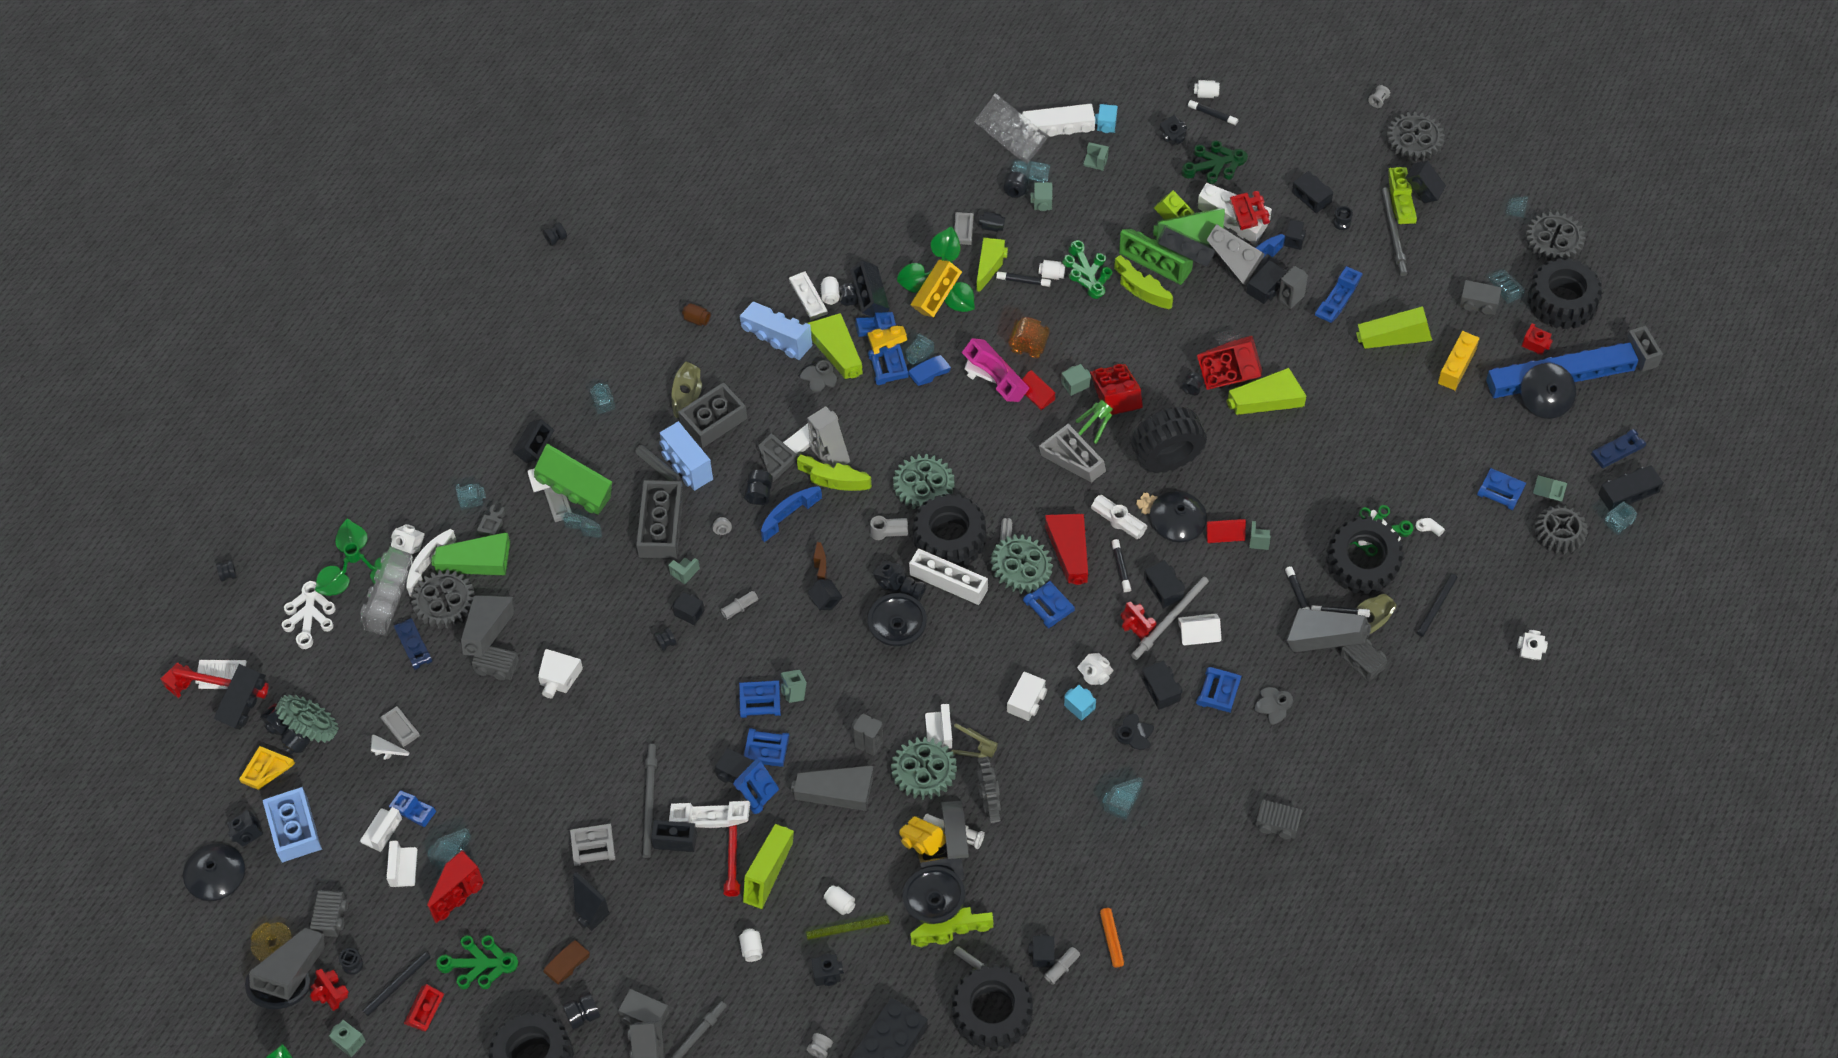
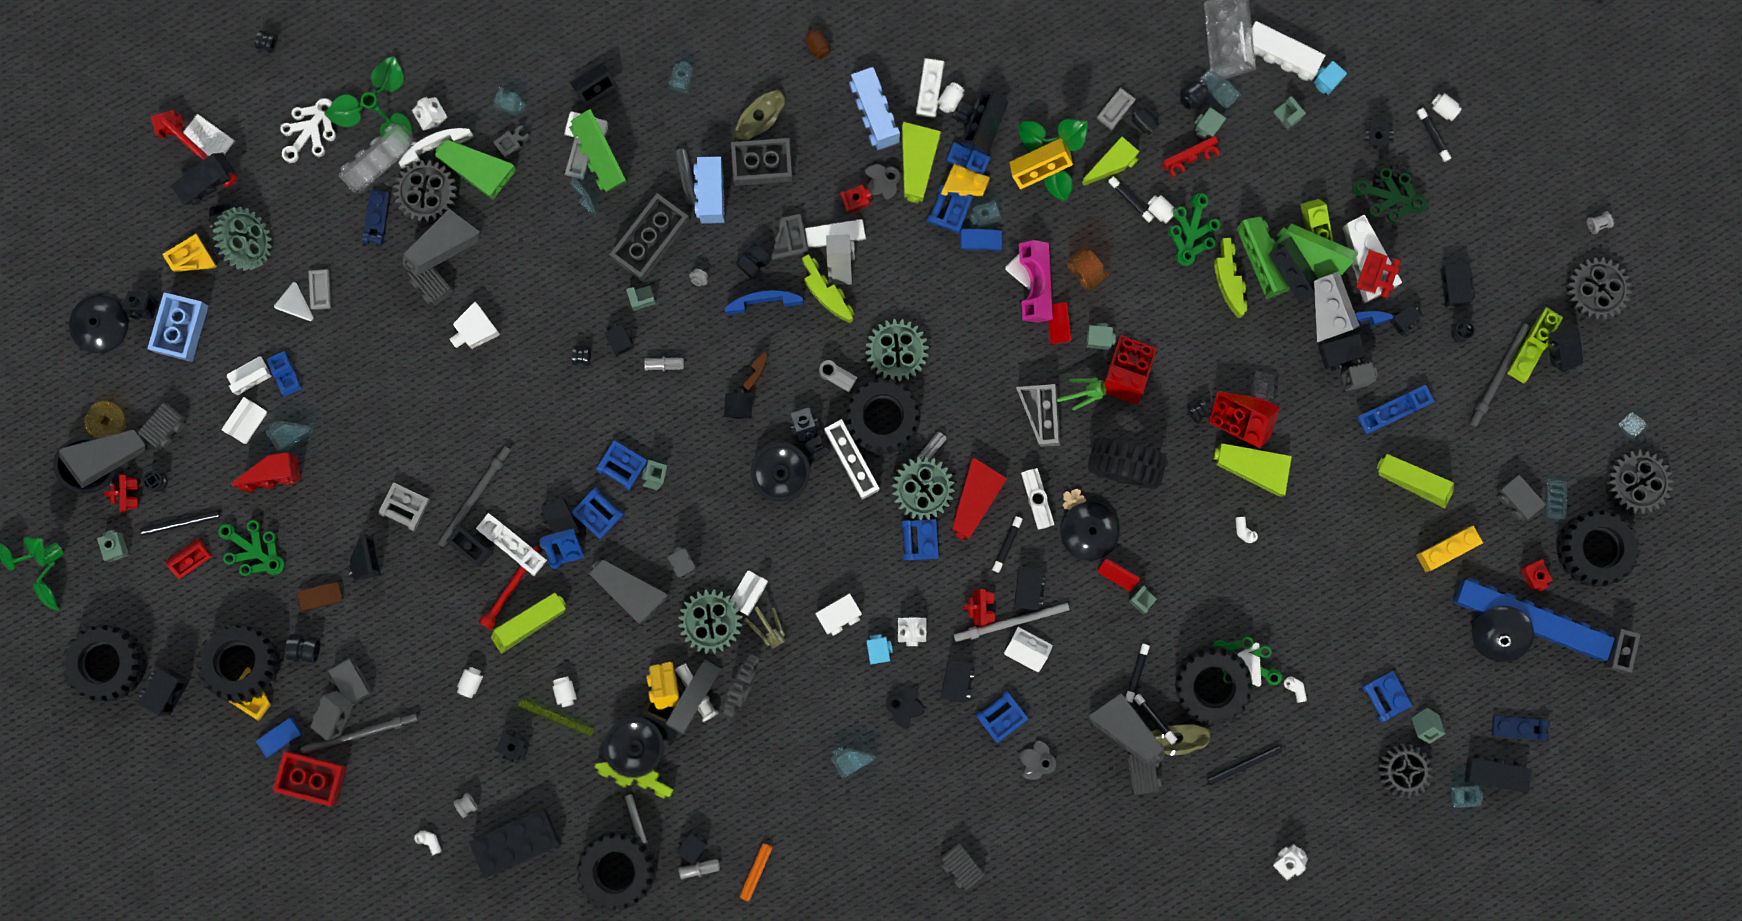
camera: 30 degrees right, 25 degrees up
(806, 402) = (863, 201): none -> red brick
(1045, 223) = (1190, 155): none -> red plate
(1302, 445) = (1243, 532): none -> white arm

